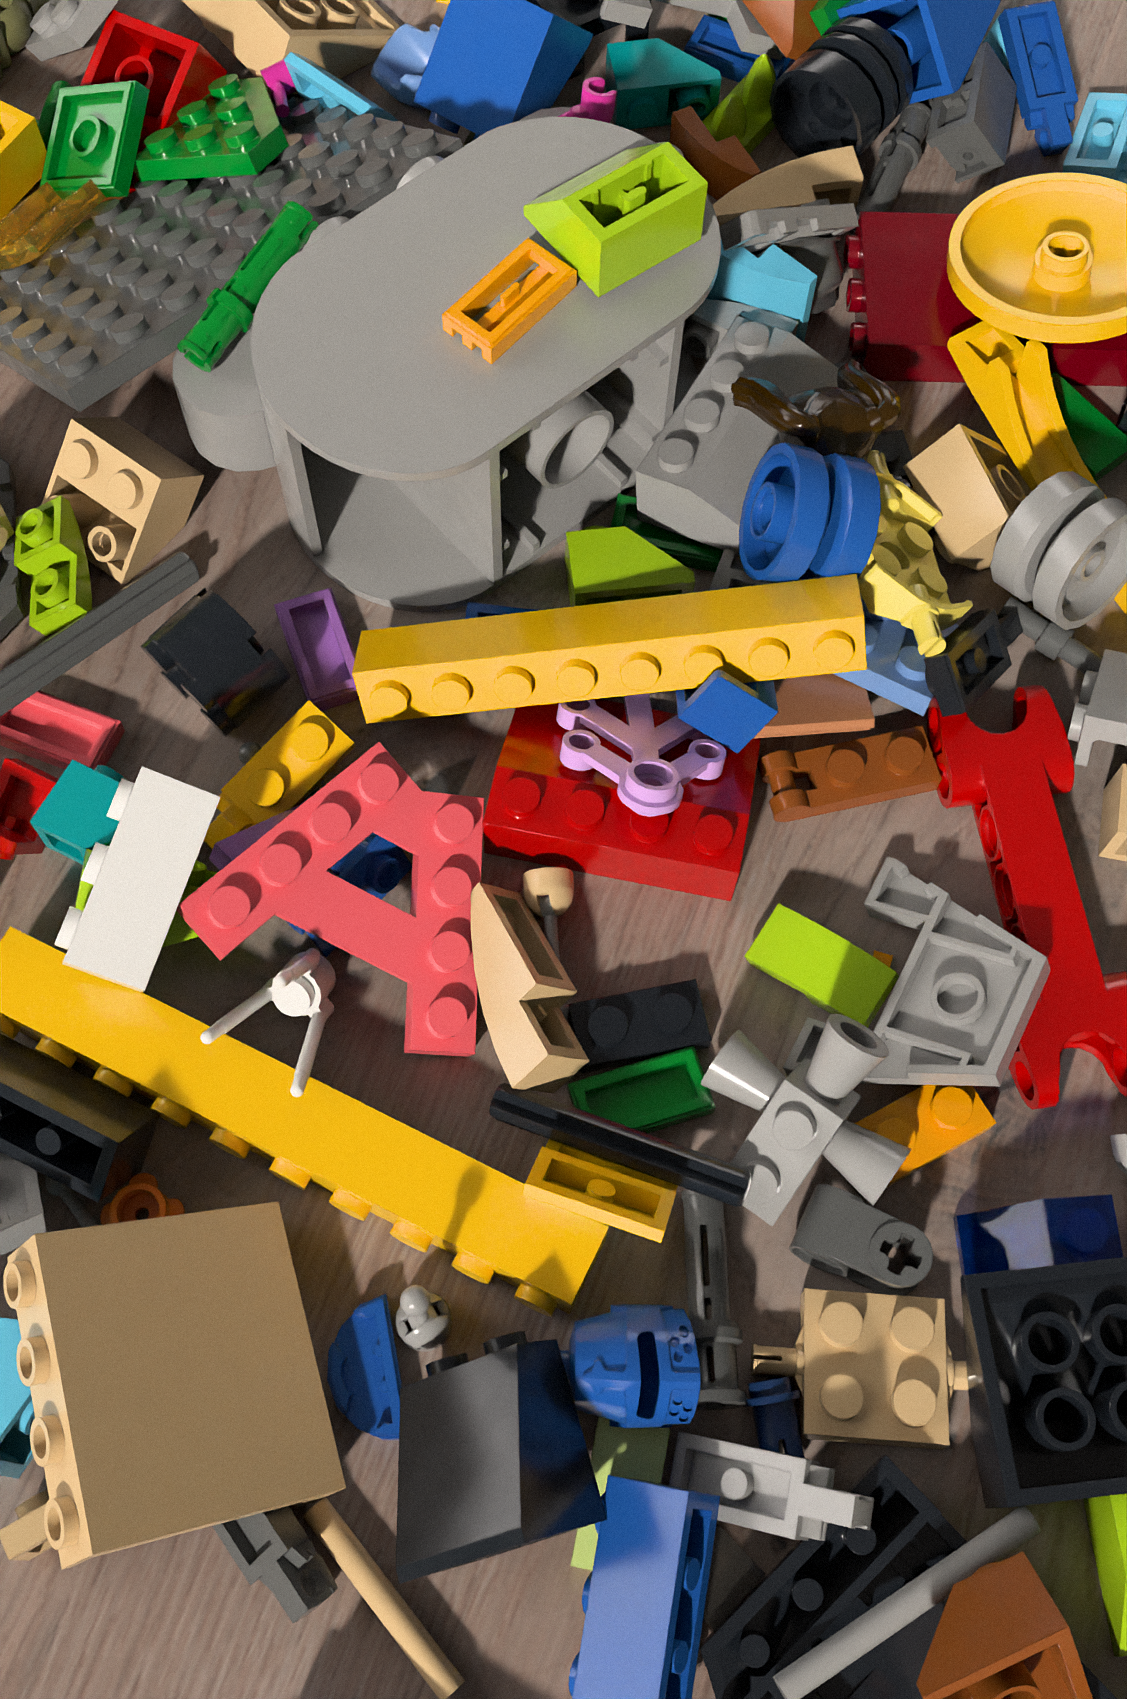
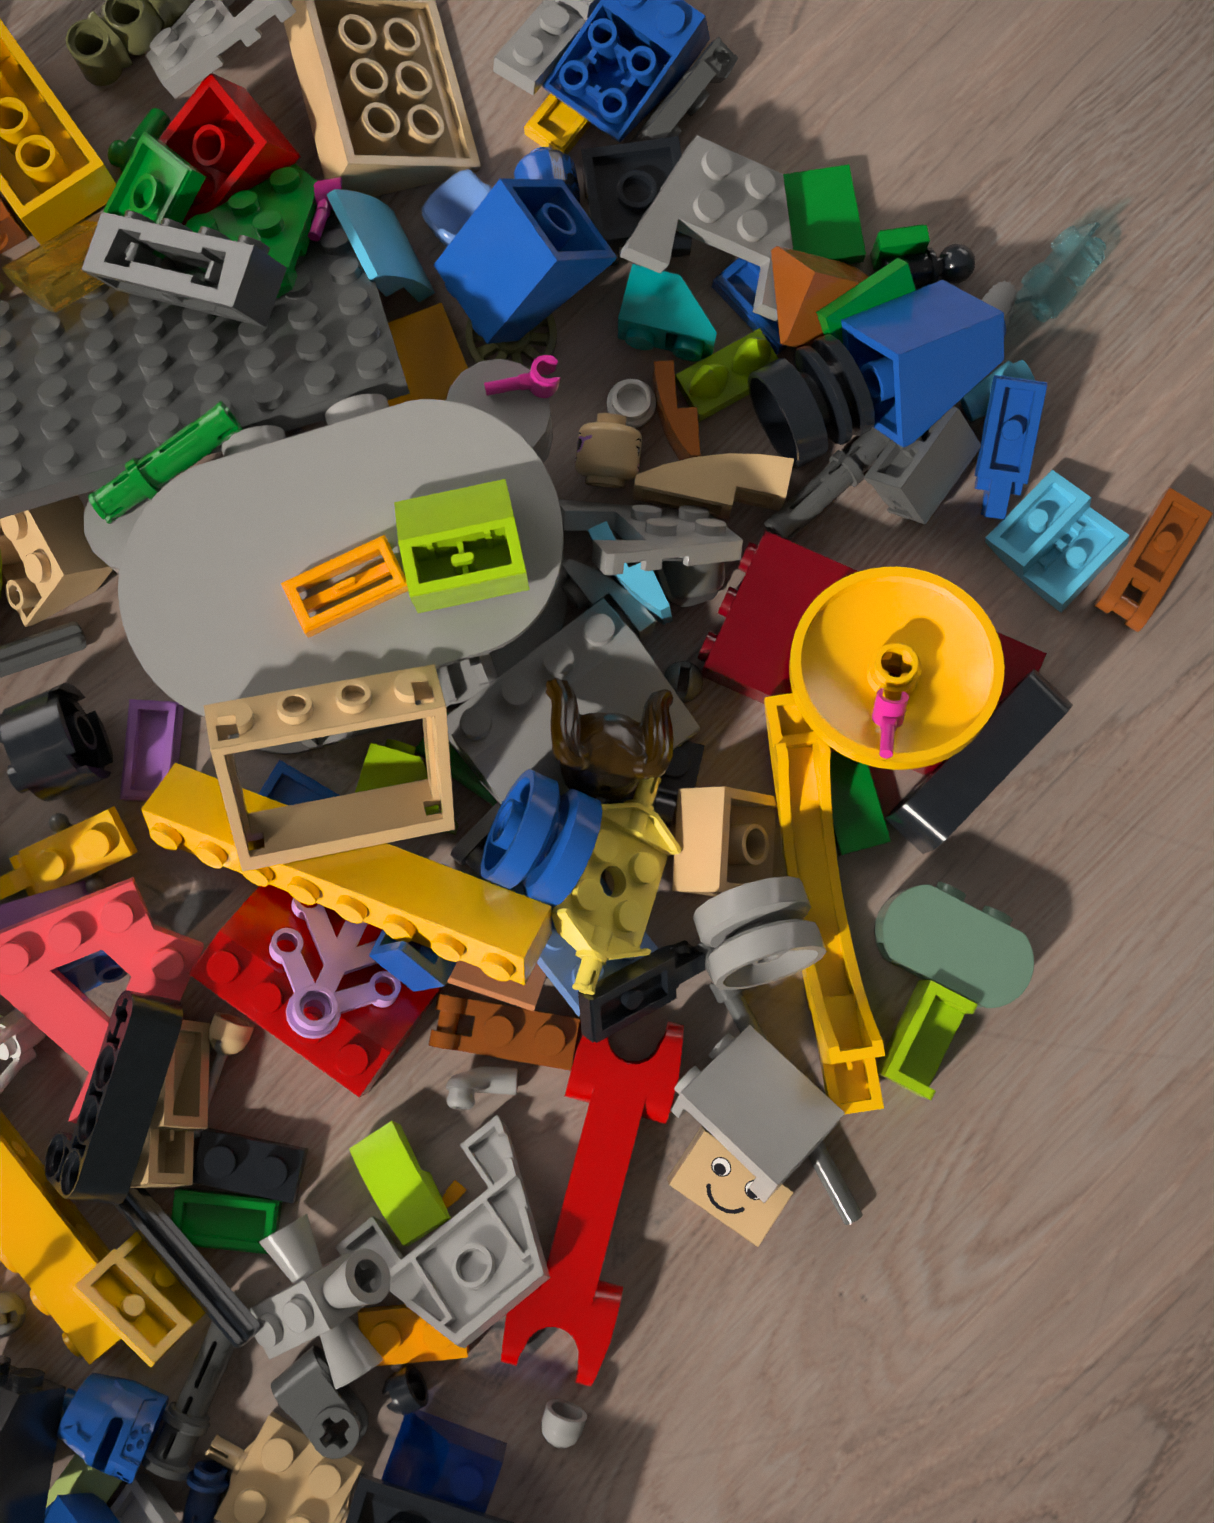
camera: 25 degrees right, 15 degrees up
(173, 147) = (241, 269): none -> dark grey brick
(474, 988) = (120, 1102): none -> black beam
(610, 581) = (344, 820): none -> tan window
(844, 835) = (480, 1080): none -> light grey arm
(948, 1187) = (406, 1390): none -> black hinge
(1086, 287) = (888, 716): none -> dark pink hand

